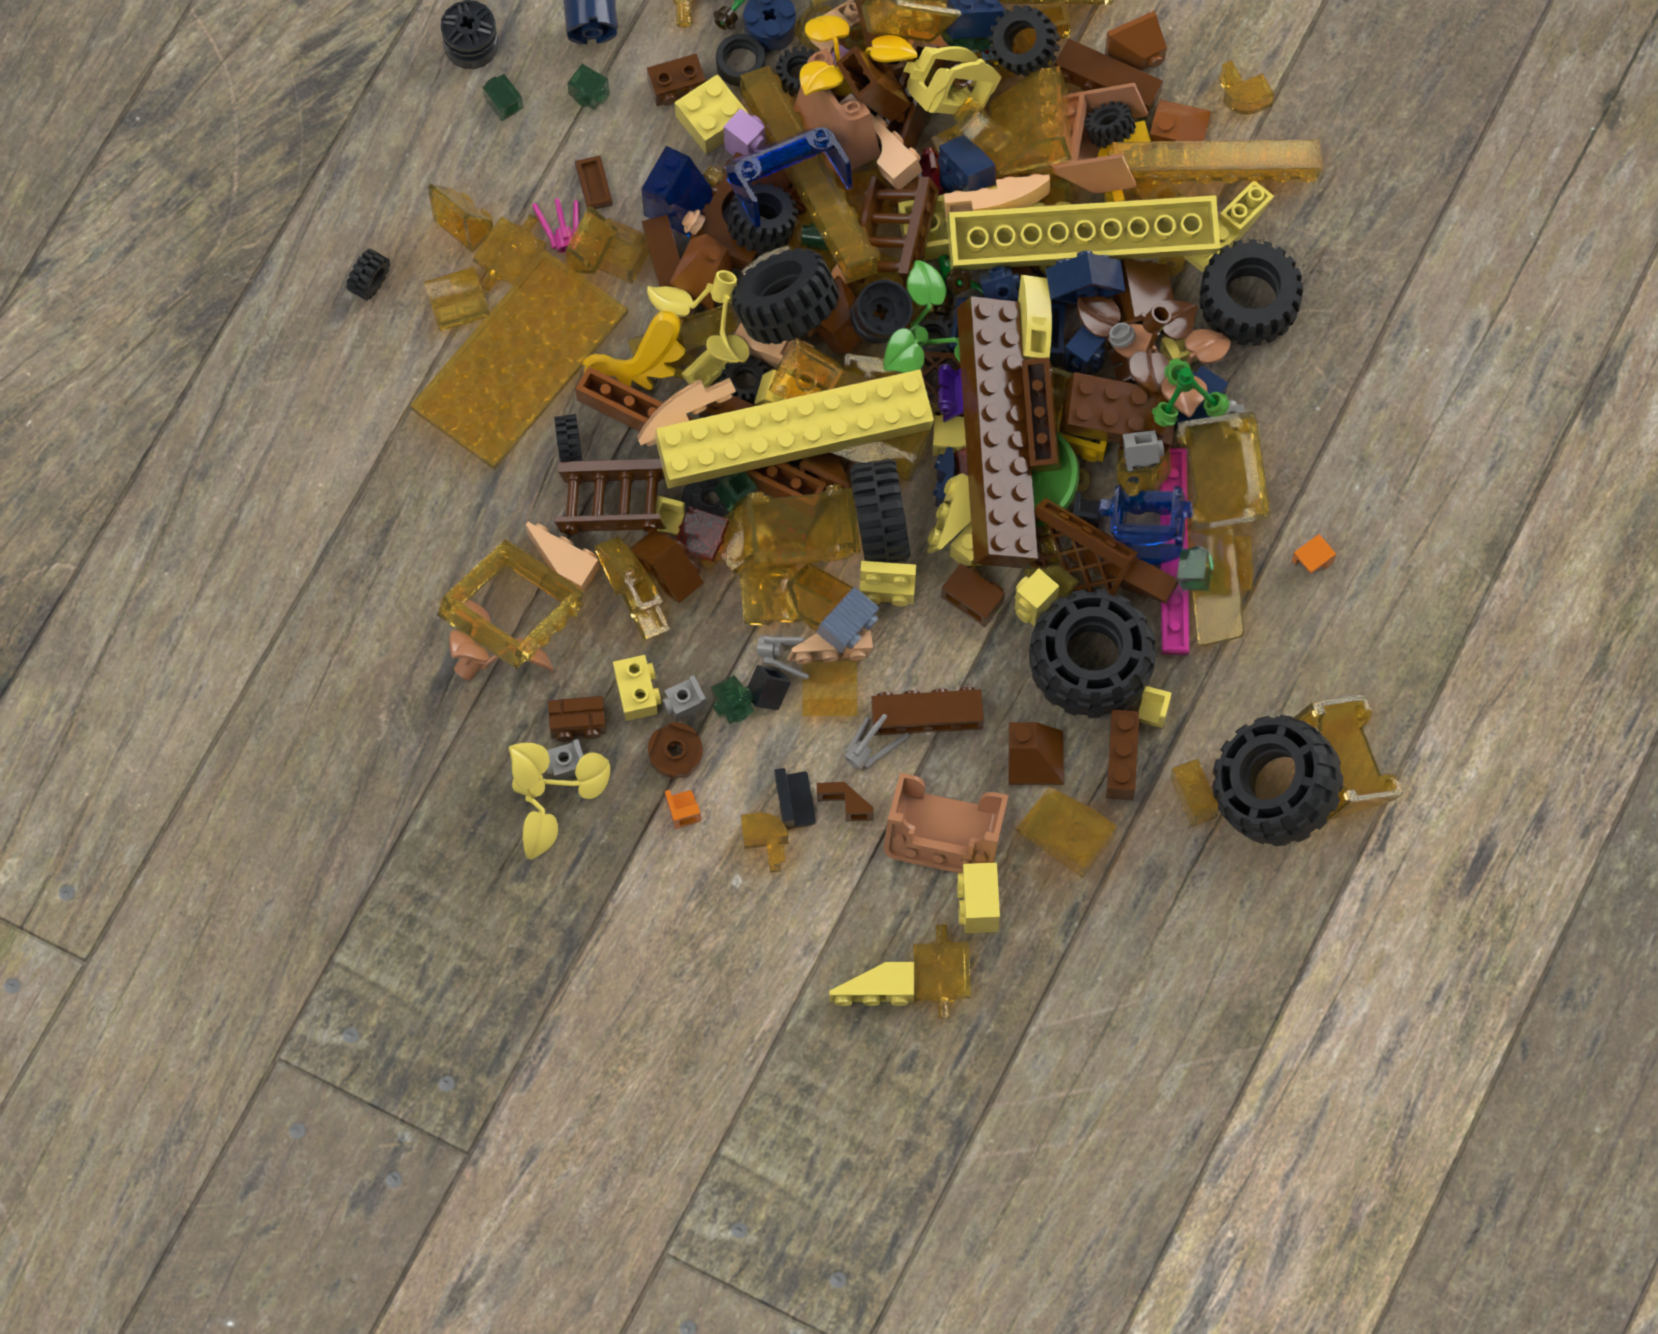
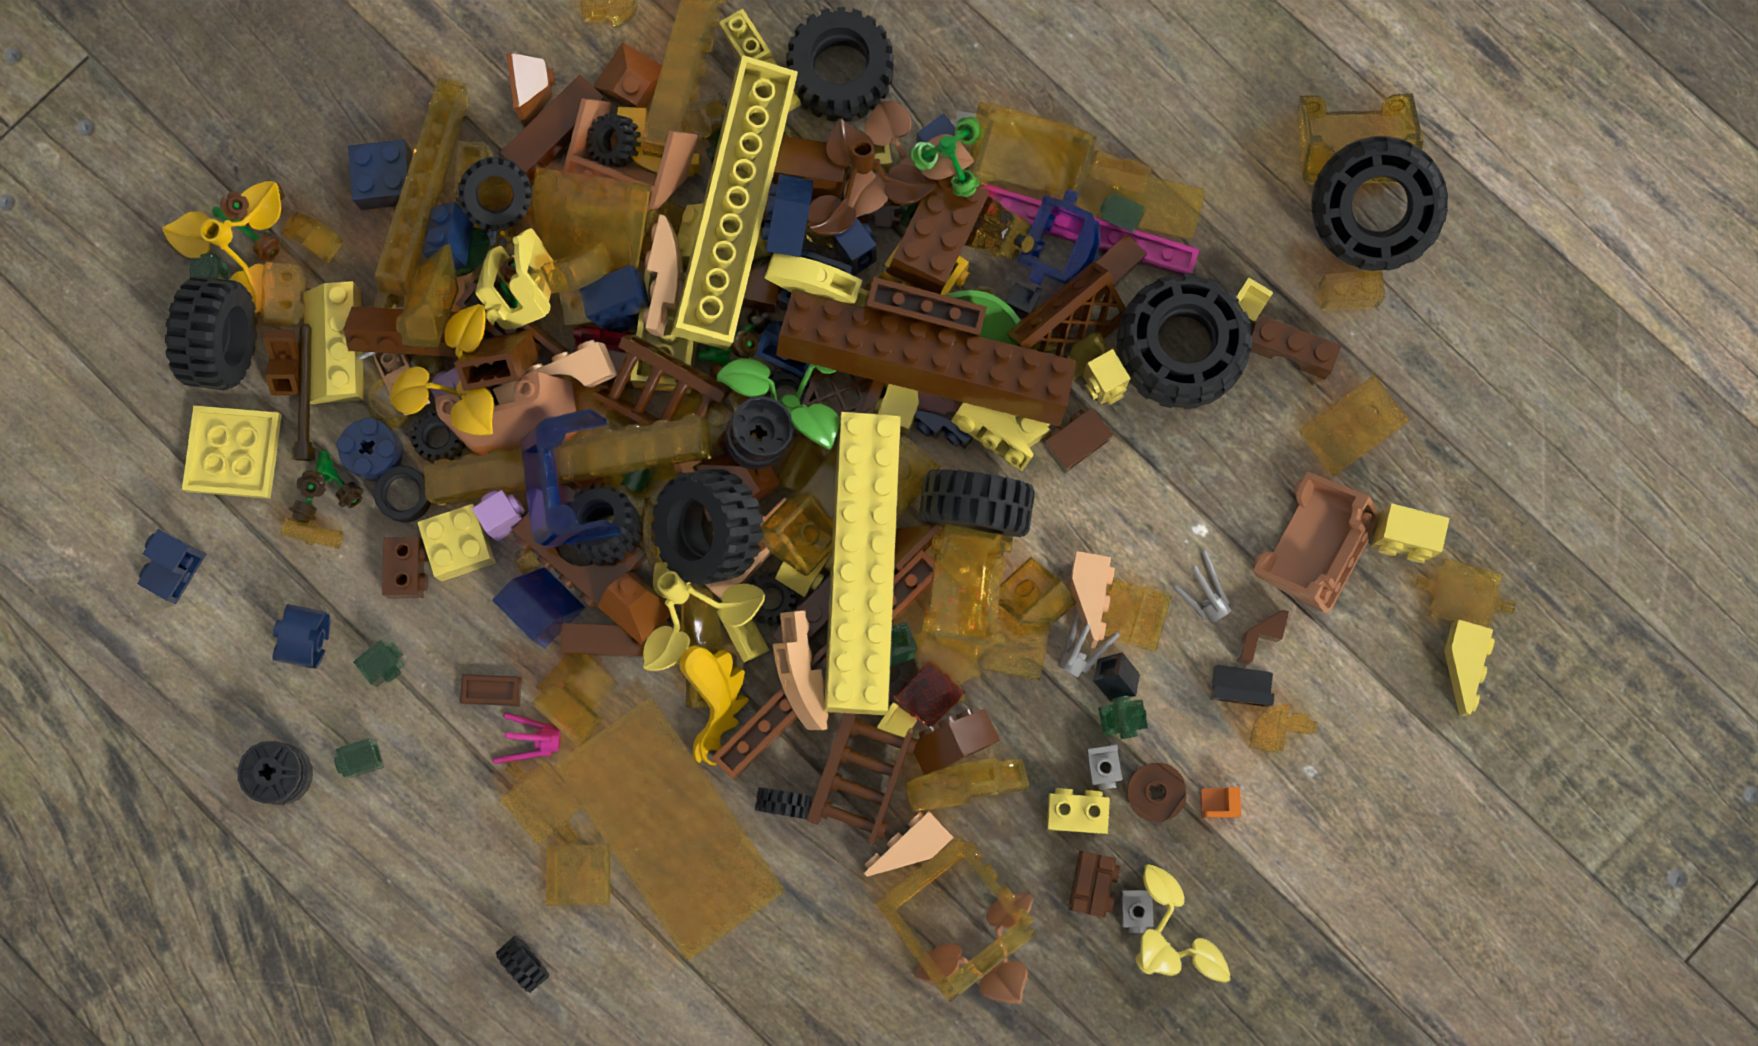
camera: 70 degrees left, 10 degrees up
(459, 216) = (487, 843): clear yellow slope -> none
(693, 222) = (579, 598): light nougat plate -> none
(848, 620) = (1082, 571): sand blue brick -> none
(888, 582) = (1052, 511): light yellow plate -> none
(929, 711) = (1190, 523): reddish brown brick -> none
(950, 394) = (862, 390): dark purple hinge -> none
(1000, 284) = (764, 304): dark blue brick -> none
(1035, 754) = (1264, 433): reddish brown slope -> none
(1121, 335) = (862, 199): light grey plate -> none
(1142, 449) = (991, 220): light grey brick -> none
(1314, 554) = (1137, 96): orange panel -> none

